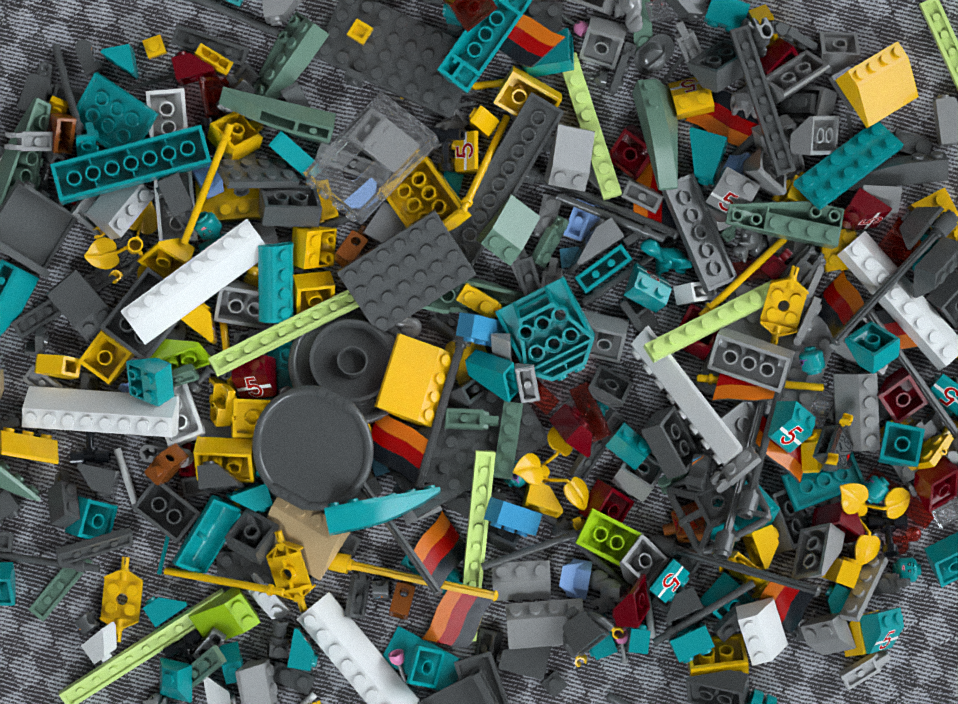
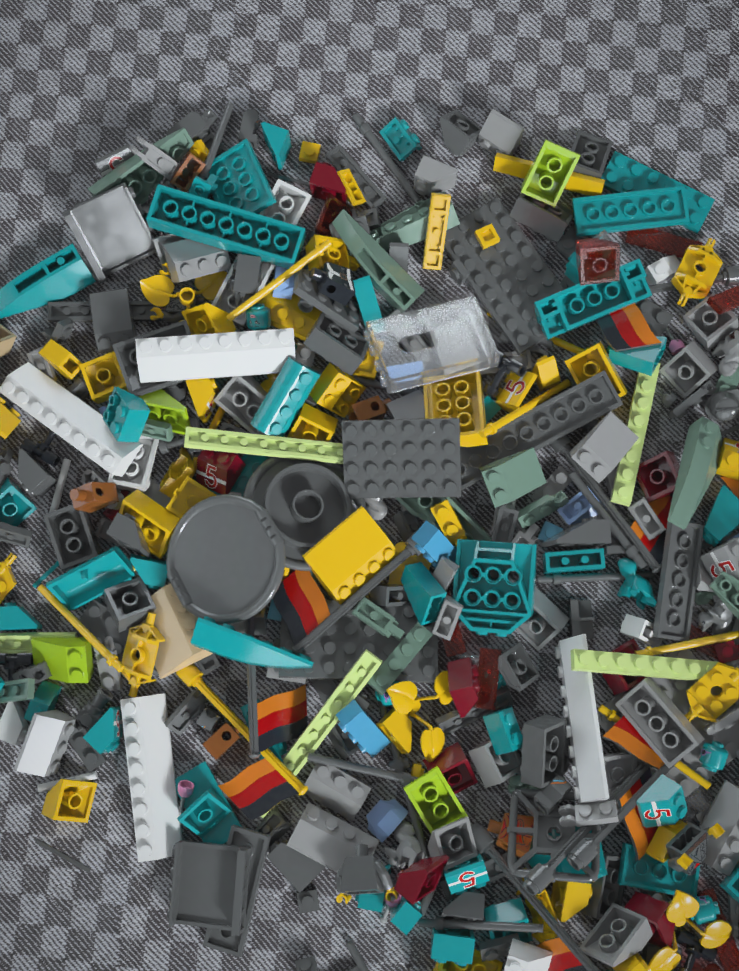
camera: 40 degrees right, 5 degrees down
(255, 155) = (334, 282): none -> black torso
(313, 54) = (436, 231): none -> yellow plate
(647, 288) = (603, 602): teal slope -> none

